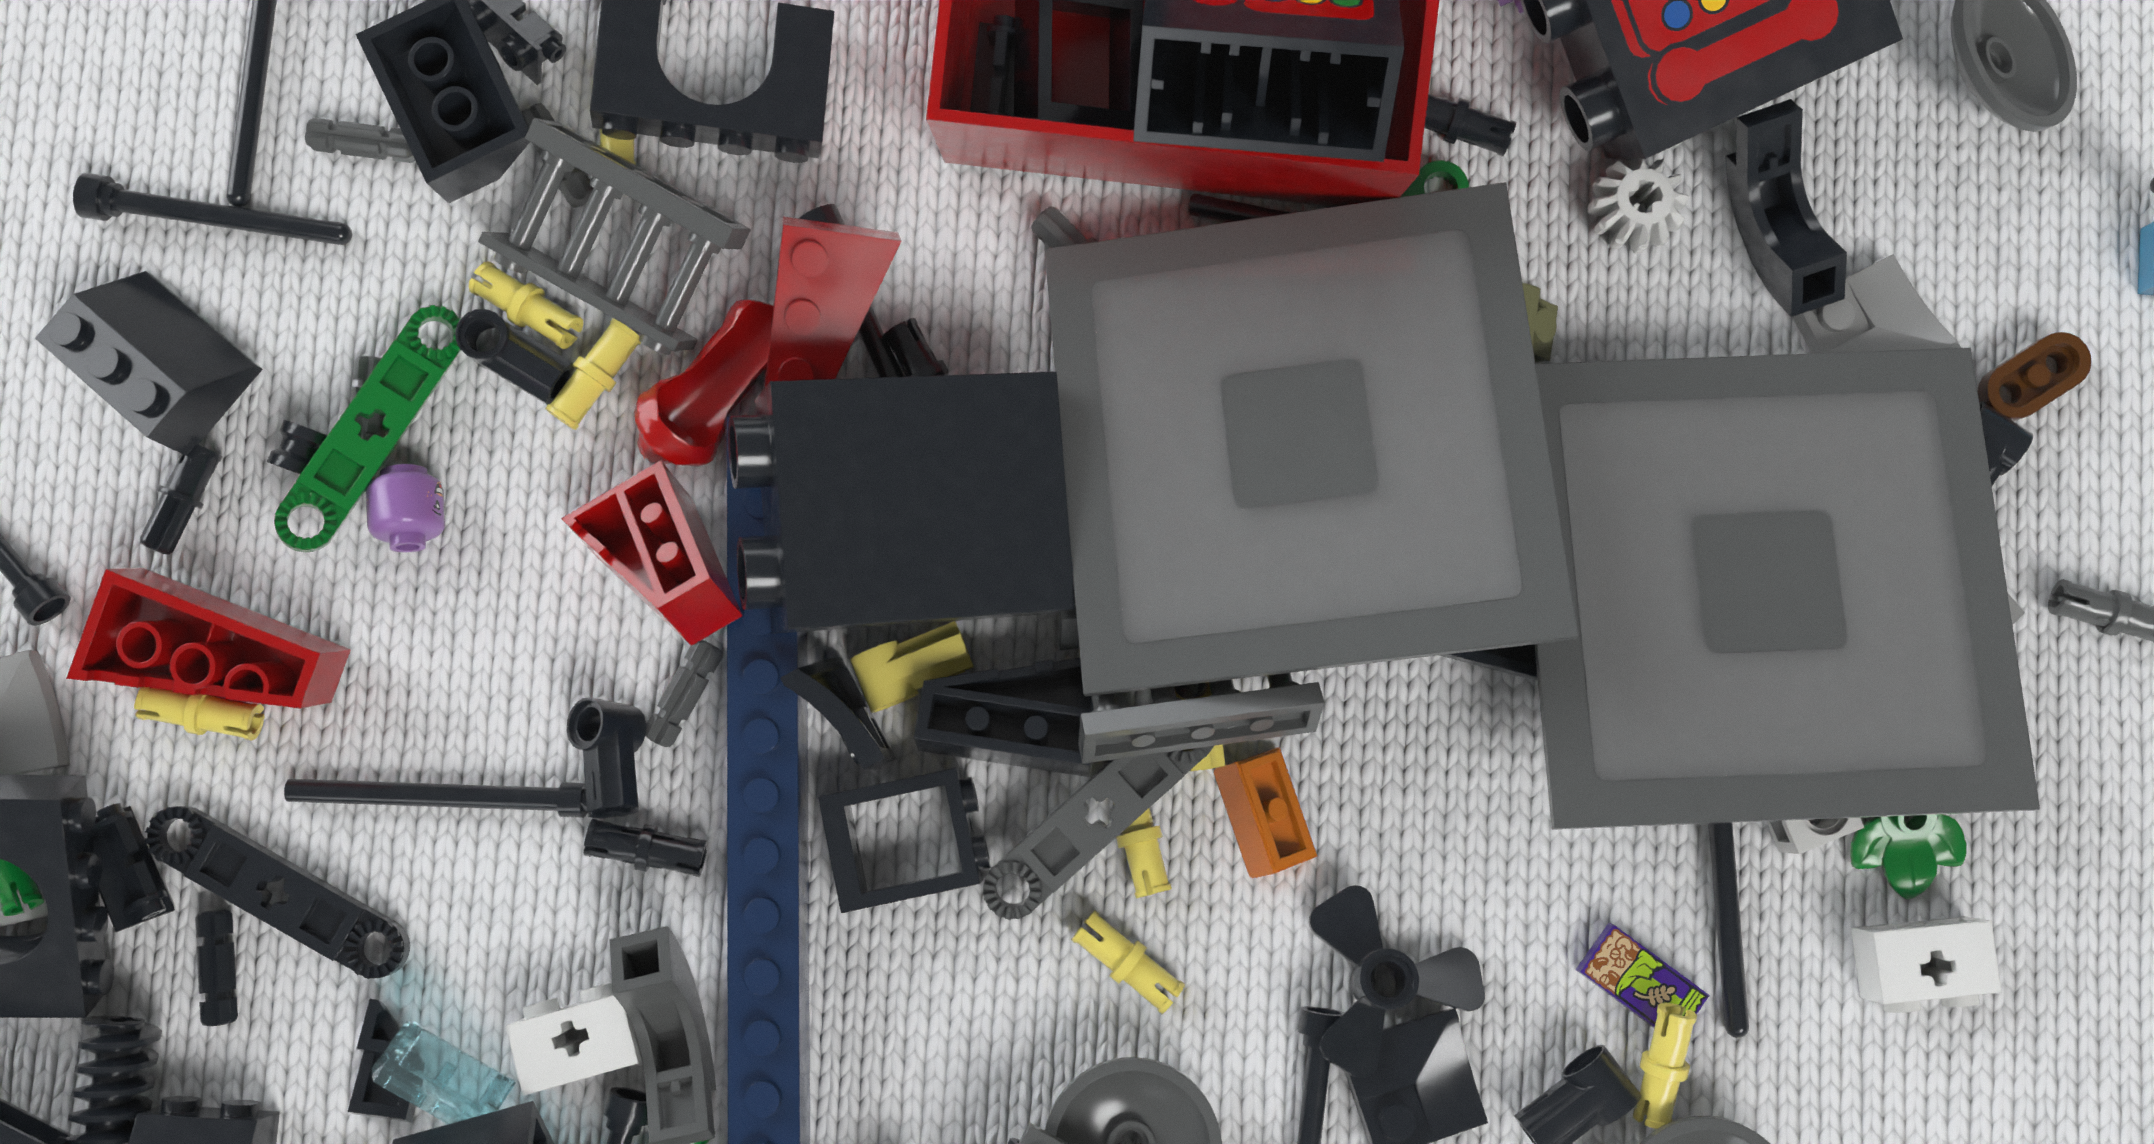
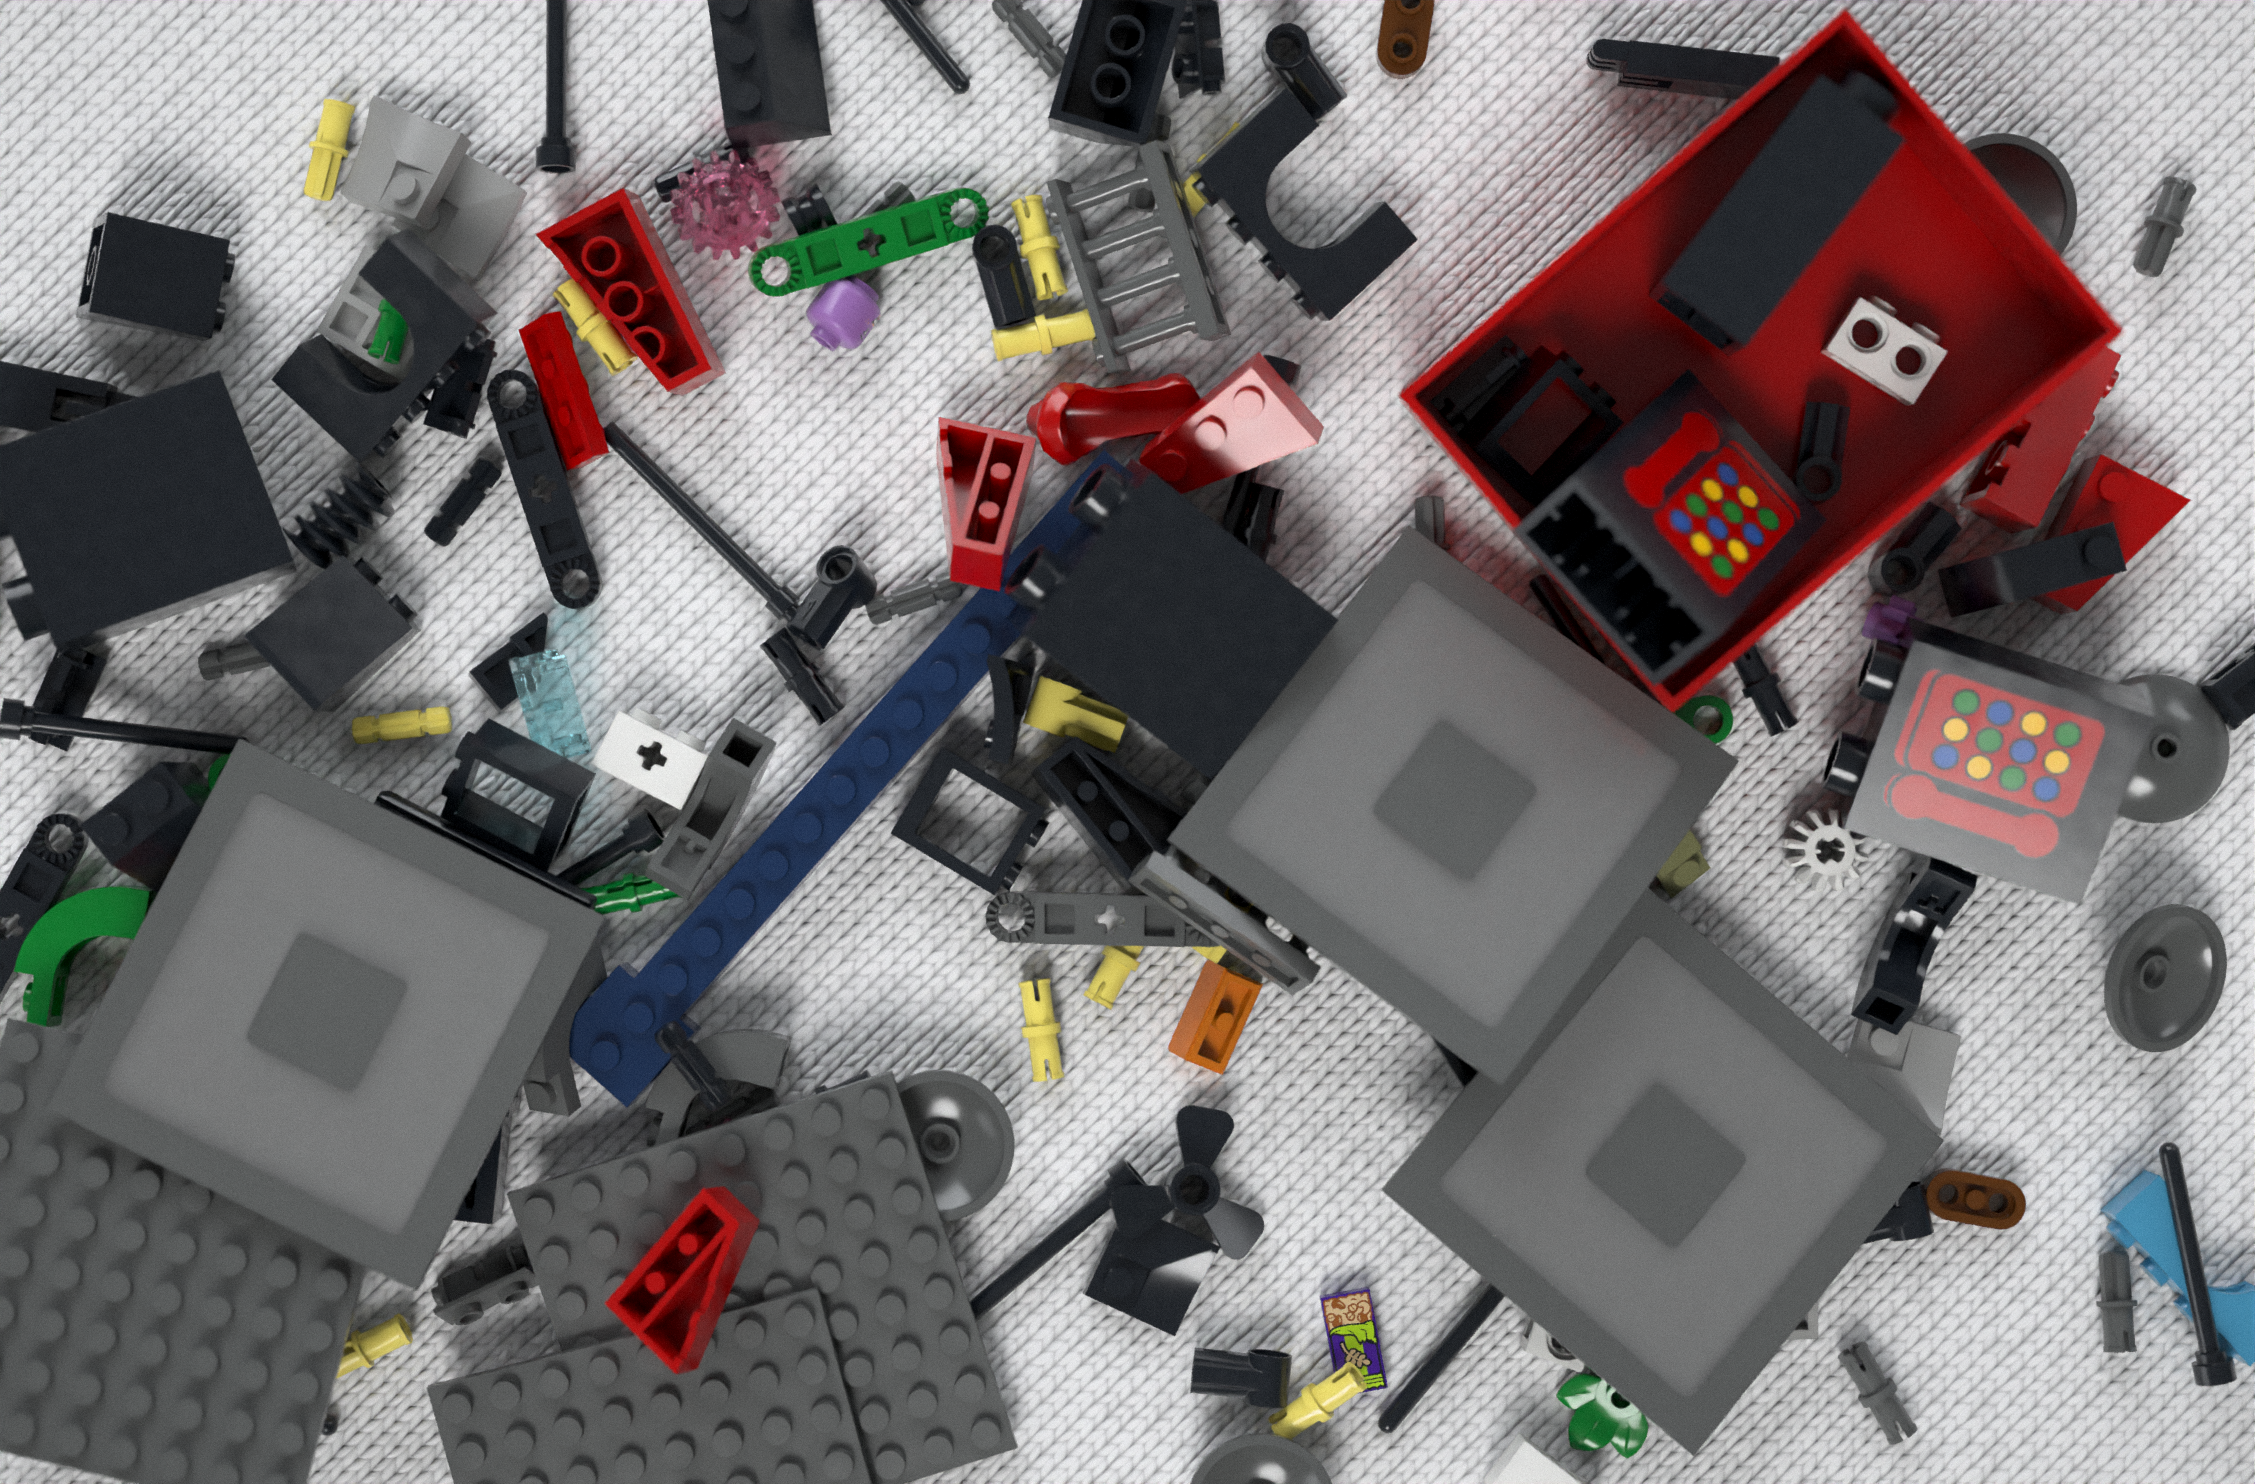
camera: 35 degrees right, 5 degrees up
(191, 510) = (722, 184): none -> clear pink gear
(219, 790) = (564, 390): none -> red plate

